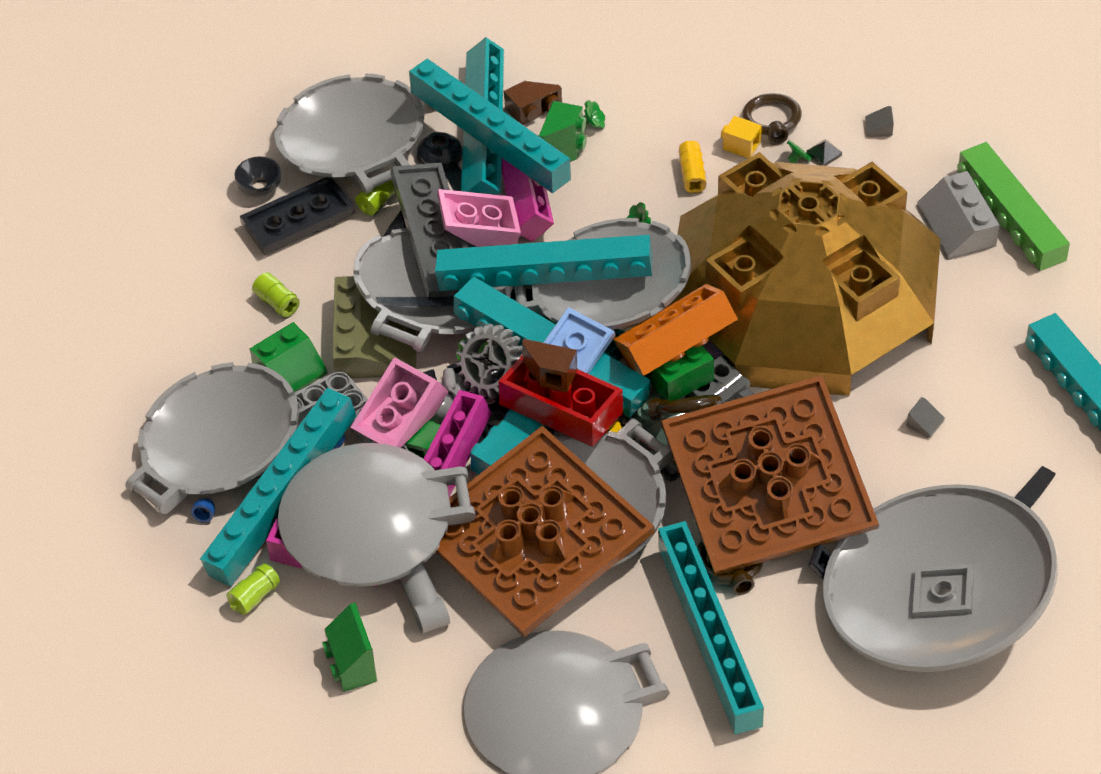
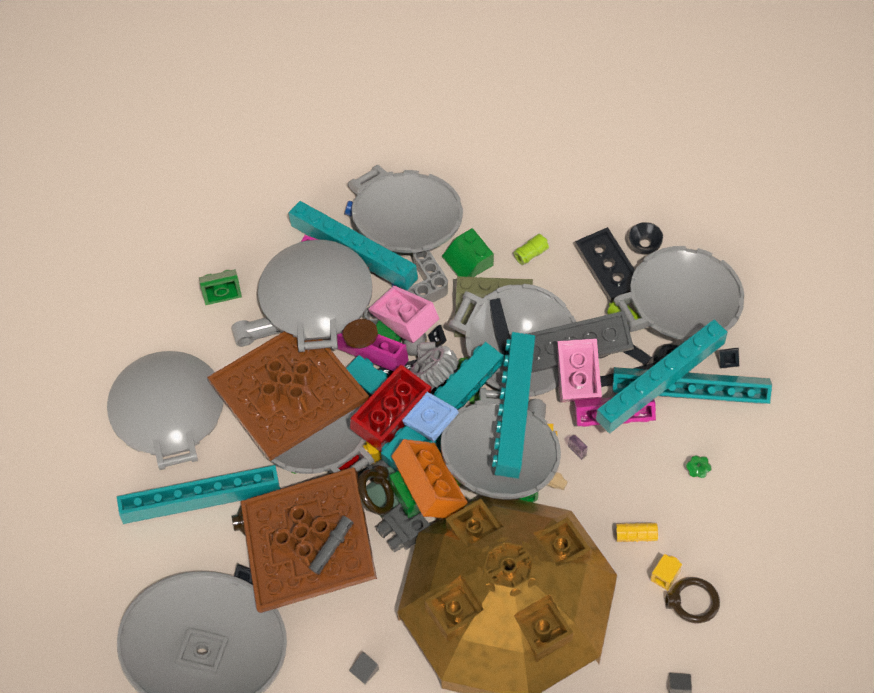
camera: 95 degrees right, 10 degrees up
(251, 590) = (280, 233): lime piece -> none
(443, 443) = (360, 333): none -> reddish brown piece
(530, 100) = (715, 421): reddish brown slope -> none
(550, 364) = (402, 393): reddish brown slope -> none
(565, 129) = (667, 435): green slope -> none
(582, 220) = (577, 446): none -> tile
(639, 211) = (584, 489): green plant -> none
(754, 412) = (335, 538): none -> dark grey pin
(797, 153) = (648, 613): green plant -> none
(824, 152) = (651, 636): slope -> none

